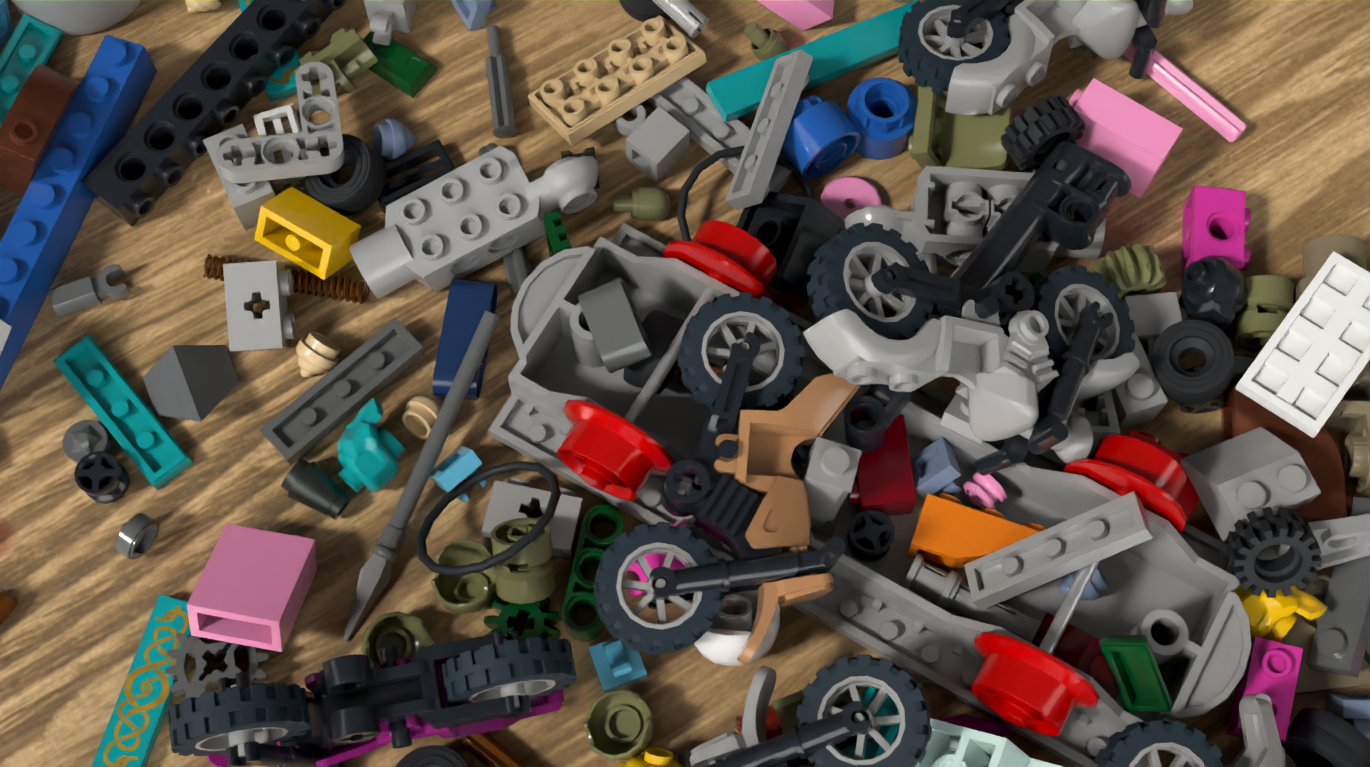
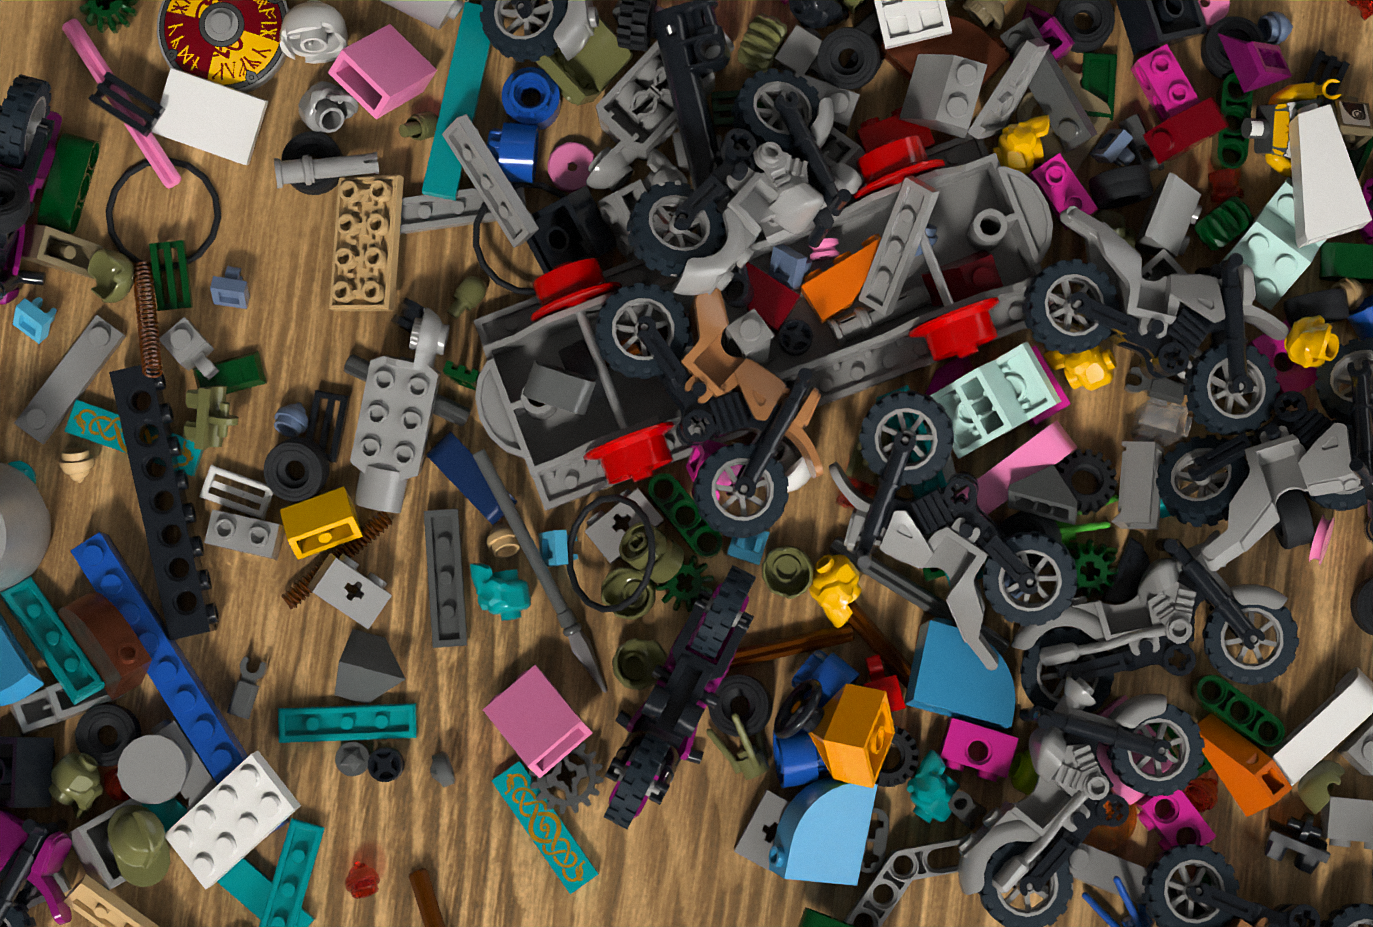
camera: 50 degrees left, 15 degrees up
(311, 138) = (262, 472): light grey beam -> none
(314, 488) = (498, 641): pearl dark grey cone -> none
(316, 354) = (407, 576): tan plate -> none
(499, 87) = (306, 321): dark grey axle -> none
(655, 141) = (432, 254): light grey brick -> none
(1136, 673) = (1000, 263): dark green tile -> none
(1278, 572) = (986, 116): black tyre -> none

